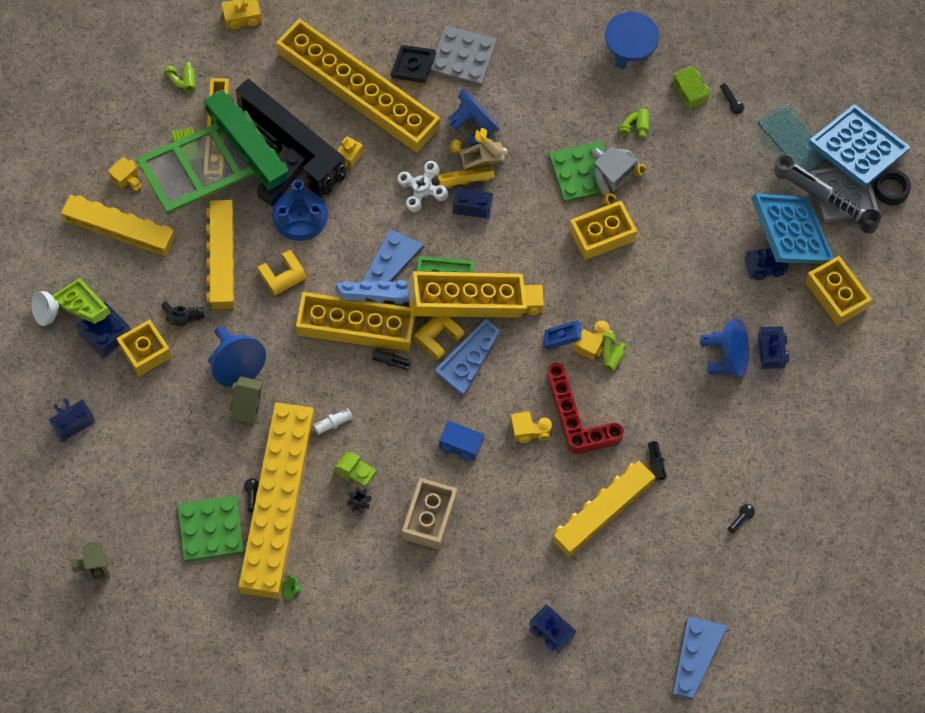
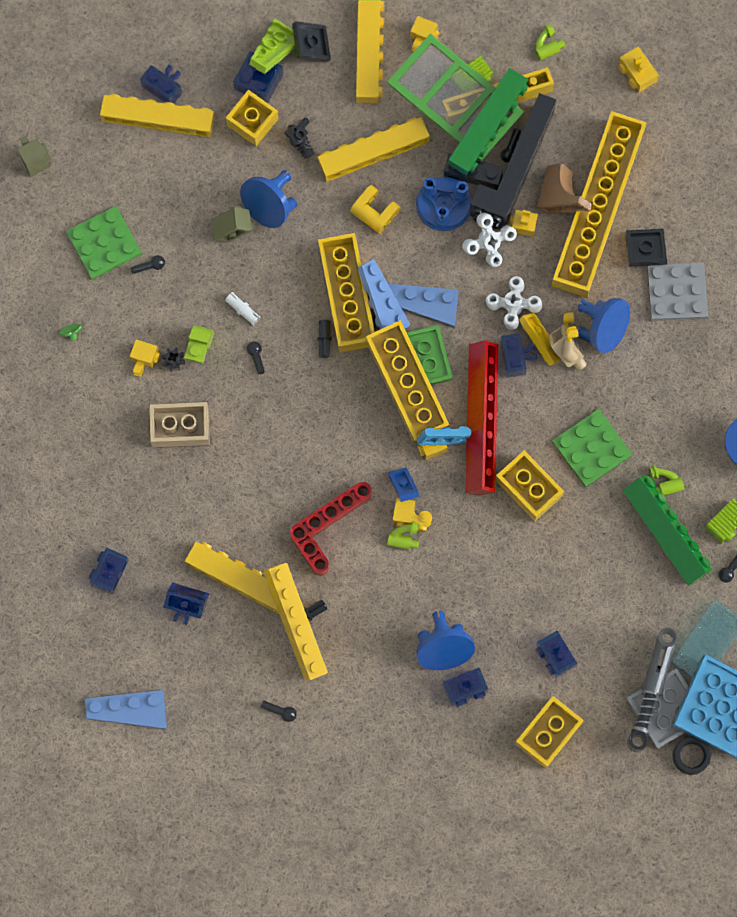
camera: 75 degrees right, 10 degrees up
(44, 308) = (261, 19): white piece -> none
(89, 271) = (311, 41): none -> black plate
(101, 435) = (157, 116): none -> yellow brick
(276, 501) = (147, 288): yellow brick -> none
(335, 115) = (557, 192): none -> medium nougat arch
(344, 526) = (144, 355): none -> yellow brick
(356, 183) = (489, 240): none -> white gear
(376, 426) = (254, 349): none -> black bar
(427, 334) = (365, 363): yellow connector -> none
(461, 441) = (263, 429): blue brick -> none
(464, 362) = (346, 405): medium blue wing -> none
(523, 248) = (482, 418): none -> red brick
(525, 429) = (296, 481): yellow brick -> none
(531, 287) = (444, 436): none -> dark azure hinge
(609, 565) = (185, 601): none -> clear blue brick
(613, 169) = (599, 474): light grey torso -> none
(665, 467) = (295, 621): none -> yellow brick
(683, 134) = (667, 529): none -> green brick
(792, 229) = (597, 666): dark azure plate -> none

